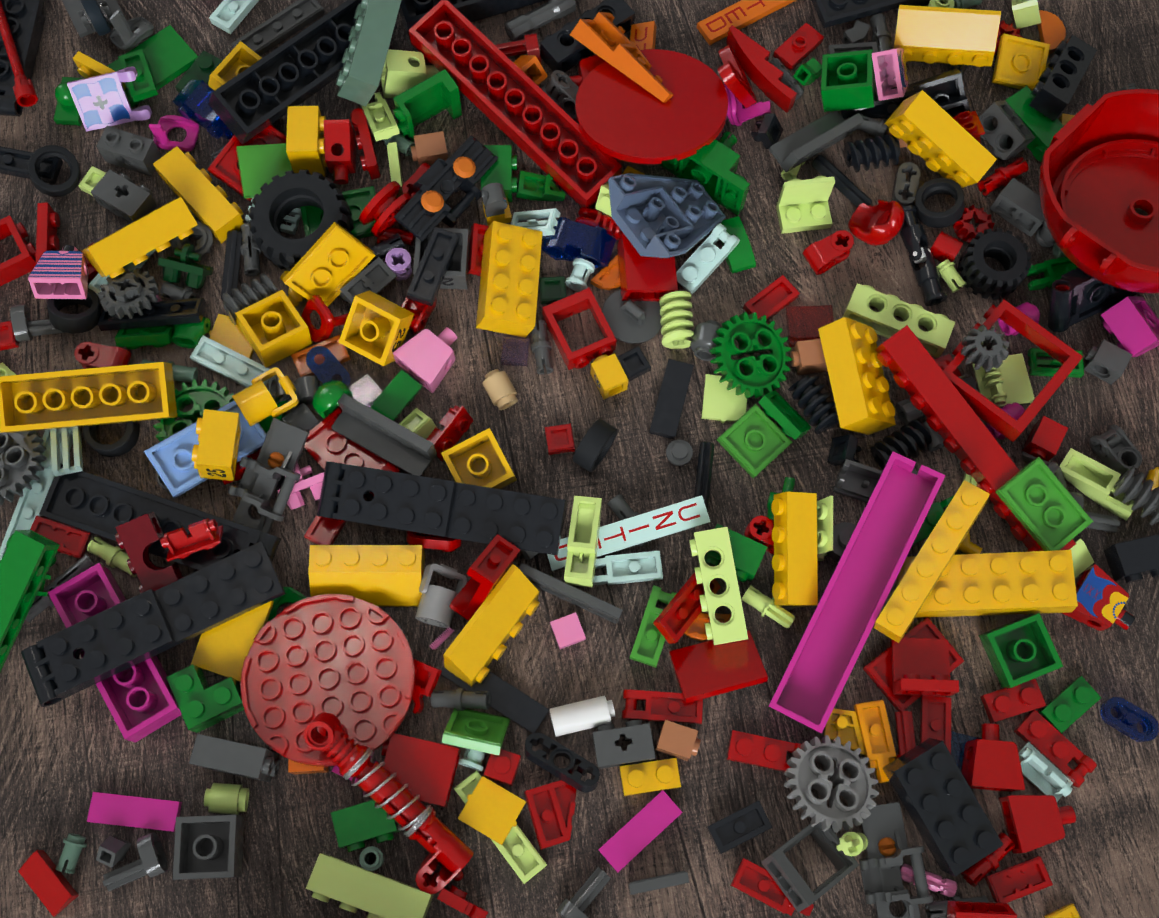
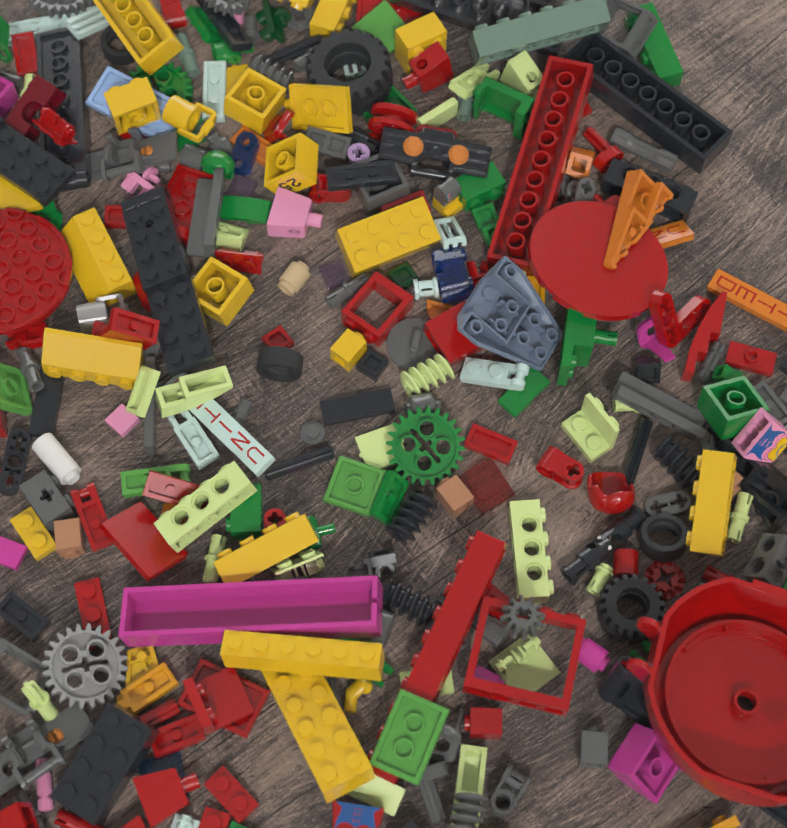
camera: 65 degrees right, 5 degrees down
(365, 142) = (440, 92): red hinge -> none
(429, 148) = (470, 129): nougat brick -> none
(558, 591) = (142, 391): none -> yellowish green tile
(856, 376) = (440, 538): yellow brick -> none
(971, 123) = (749, 528): red hinge -> none
(1020, 650) = (273, 776): green brick -> none
(1045, 371) = (579, 727): green tile -> none

